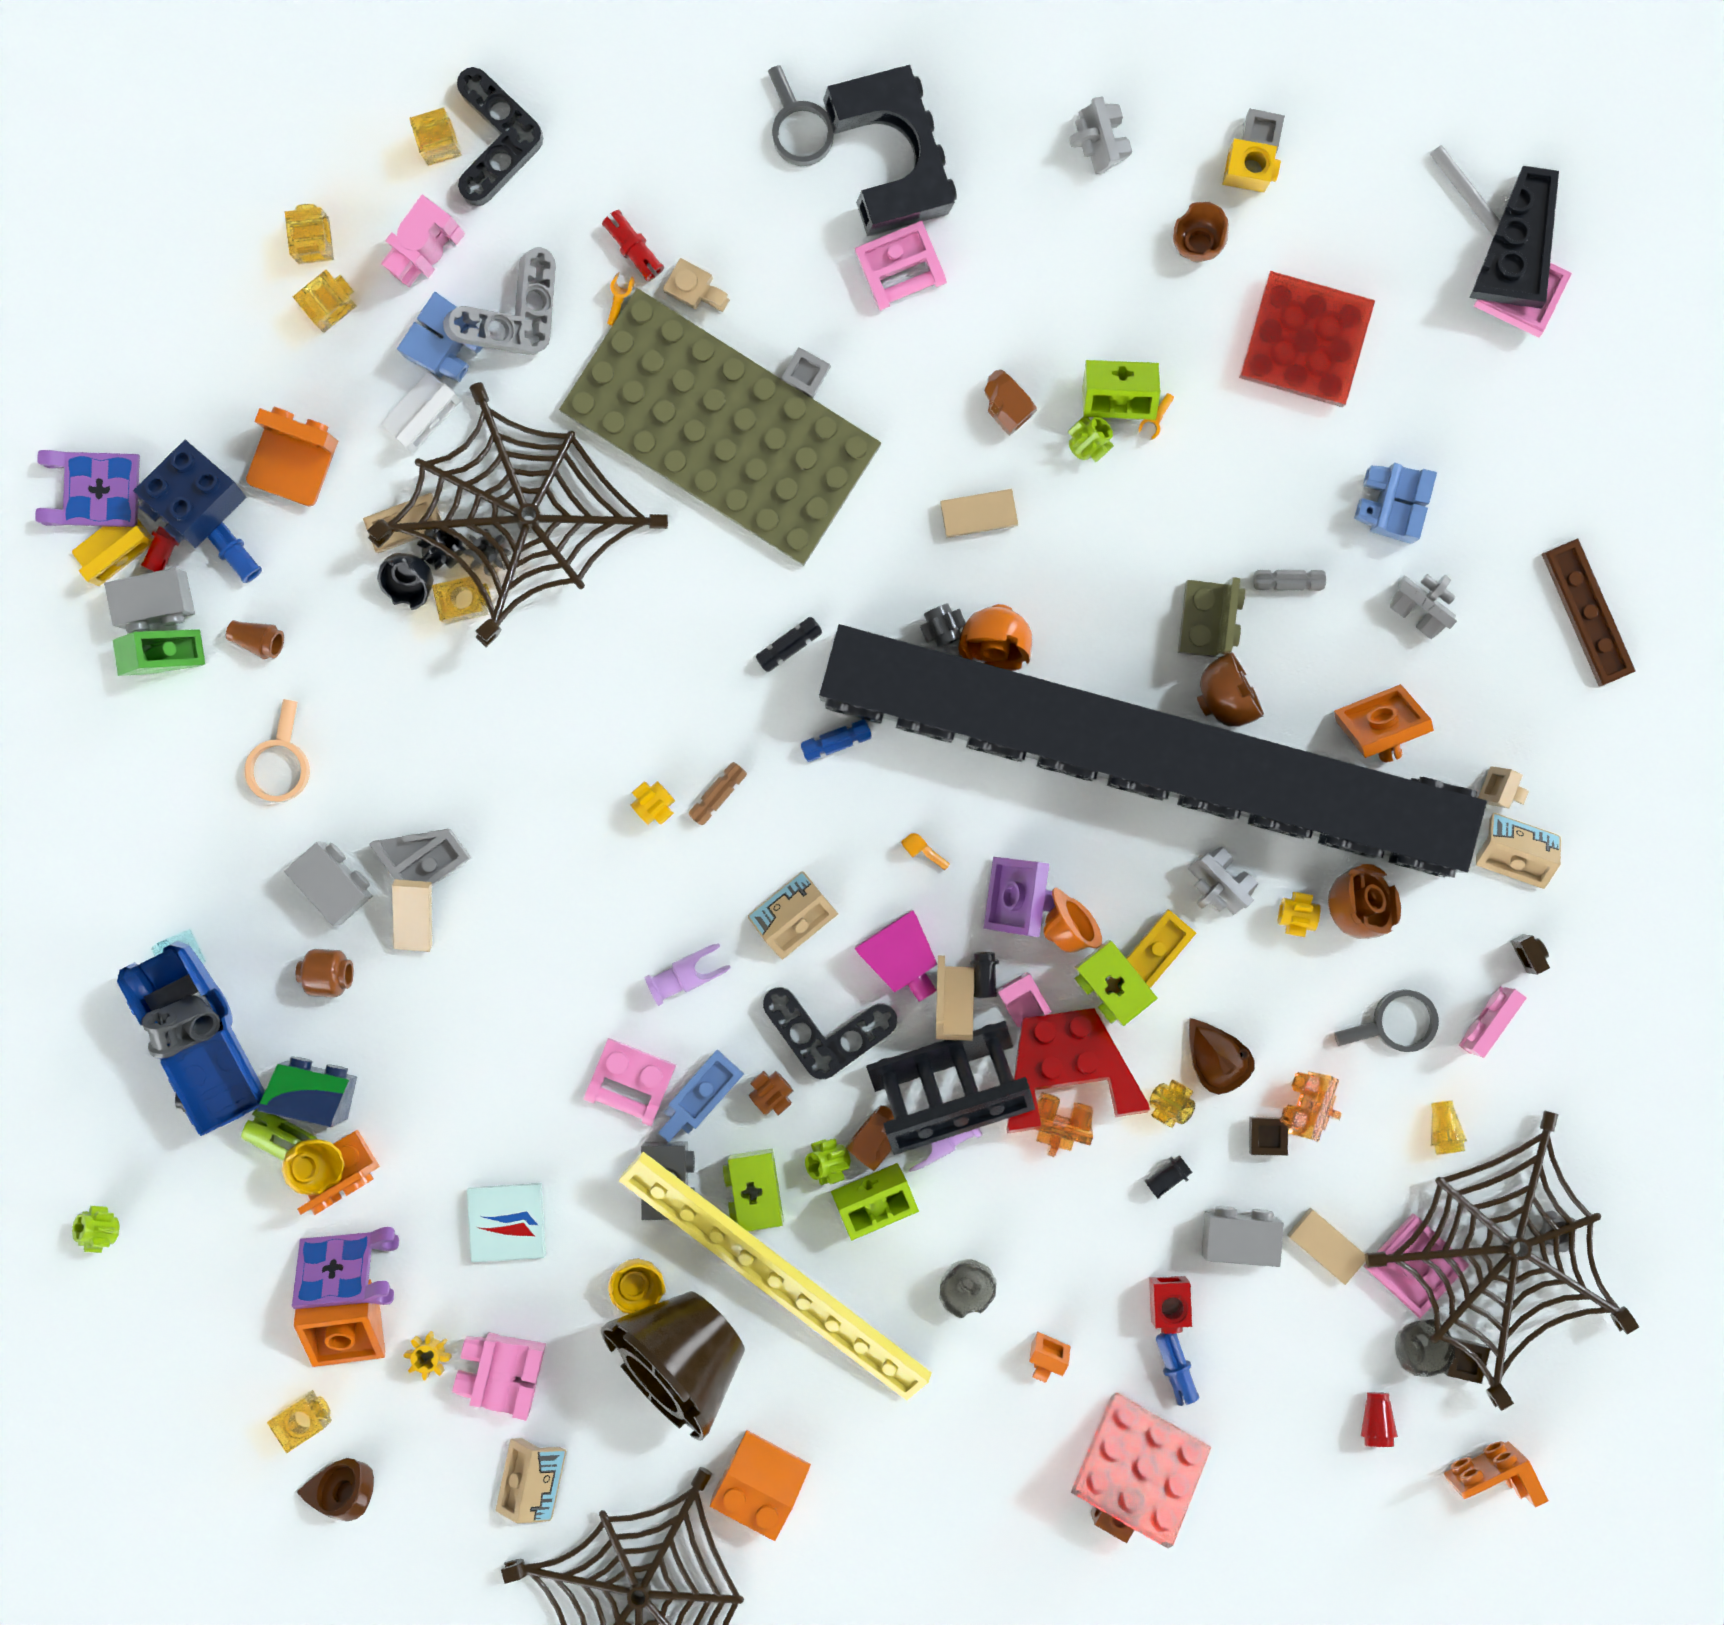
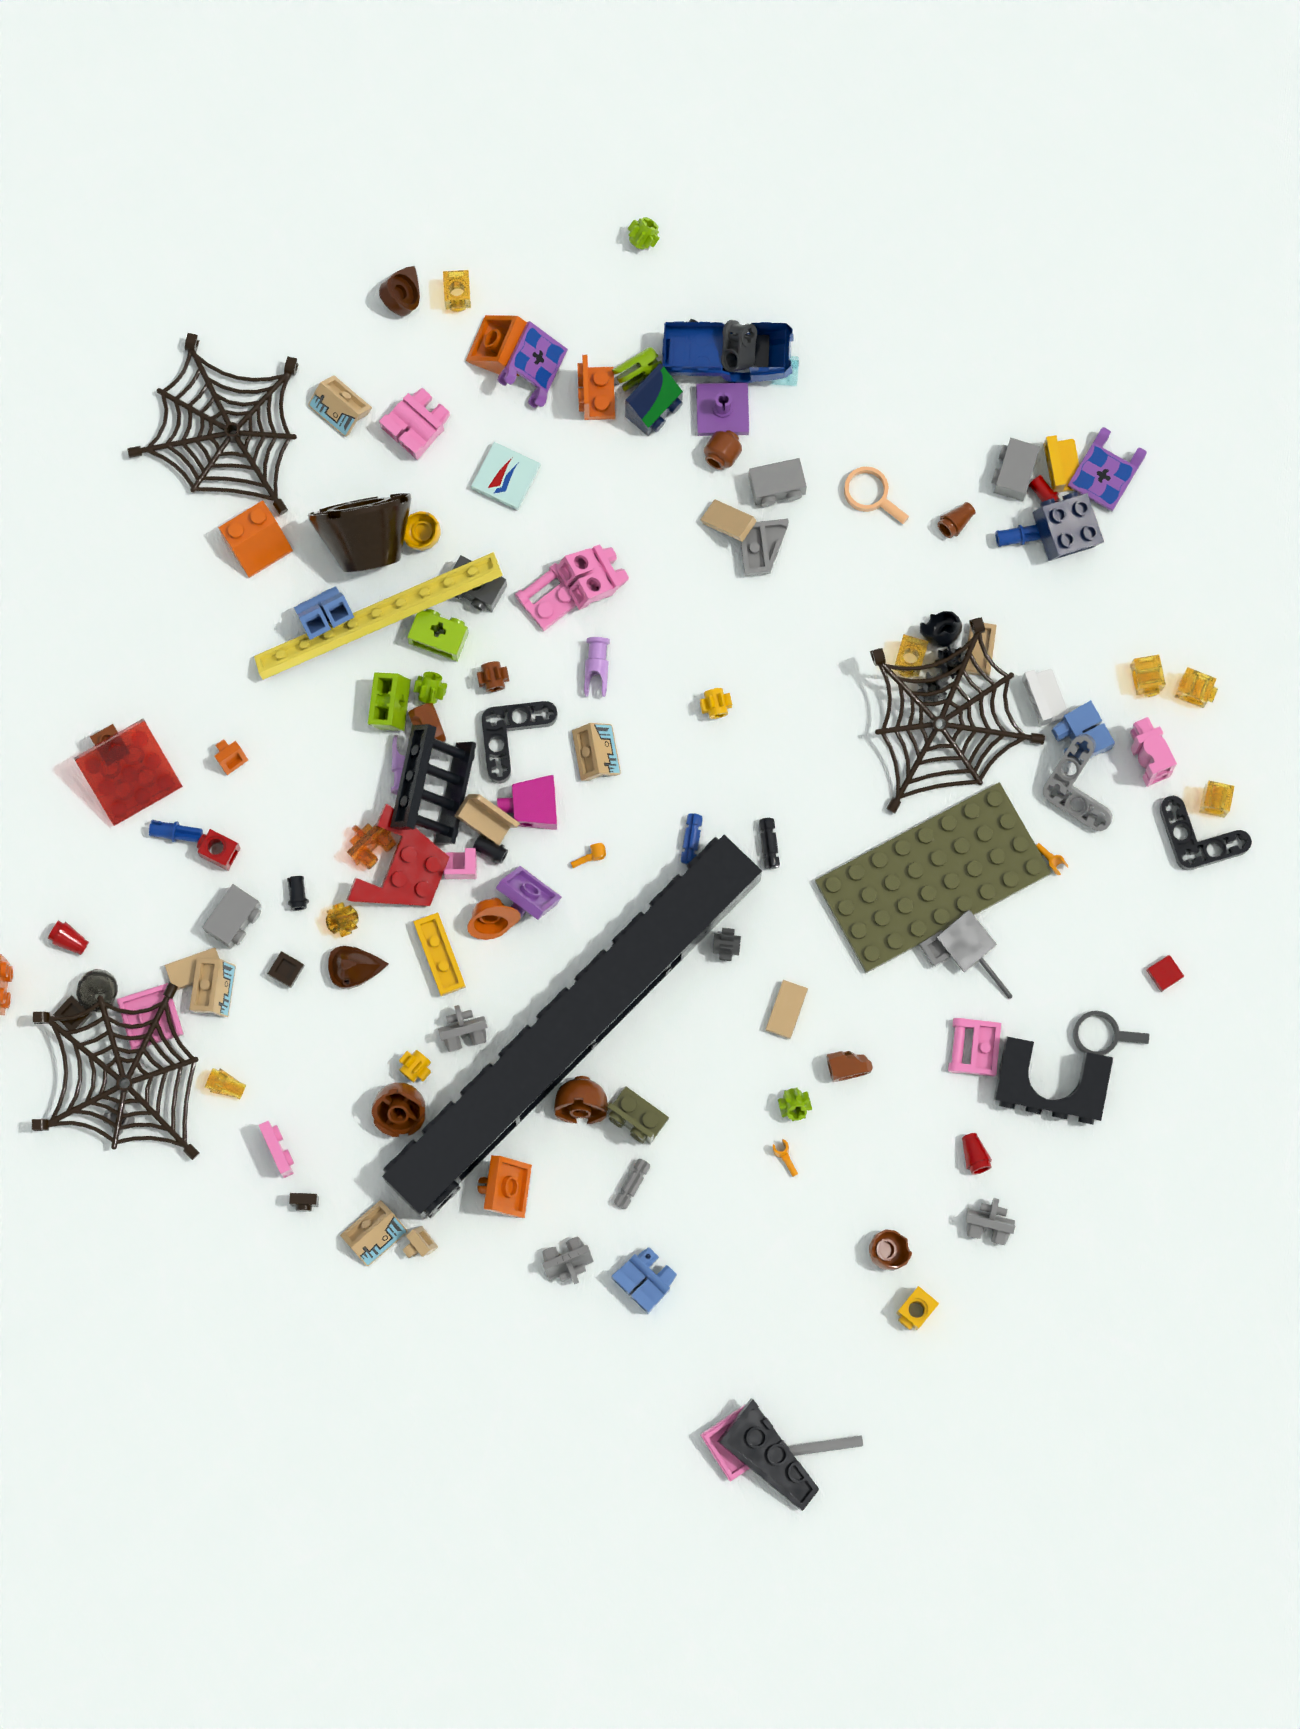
camera: 115 degrees right, 10 degrees down
(158, 651) = (979, 457): bright green slope -> none
(271, 1003) = (722, 408): none -> medium lavender tile
(291, 456) = (1058, 601): orange bracket -> none
(312, 1166) = (607, 378): yellow hair -> none
(422, 1347) = (455, 378): yellow gear -> none
(569, 1039) = (591, 575): none -> bright pink hips
(632, 245) = (1080, 885): red pin -> none
(683, 90) = (1165, 973): none -> red tile
(692, 284) = (1034, 908): tan plate -> none
(700, 1095) = (516, 634): medium blue hinge -> none
(717, 793) = (699, 747): medium nougat axle -> none
(781, 339) = (968, 943): none -> piece
(810, 1355) = (324, 607): none -> medium blue hips
(967, 1288) = (302, 729): clear smoke hair -> none
(997, 637) = (700, 973): orange cylinder -> none
(1029, 195) = (975, 1154): none -> red cone
(1121, 389) = (815, 1140): lime brick -> none
(1134, 992) = (452, 926): lime brick -> none
(1263, 127) = (935, 1330): light grey plate -> none
(1306, 339) = (782, 1282): clear red plate -> none
(1314, 1105) = (287, 1008): clear orange hips -> none
(1341, 1211) = (212, 986): none -> tan panel
(1376, 1028) = (312, 1077): dark grey piece -> none
(1588, 612) = (501, 1367): reddish brown tile -> none

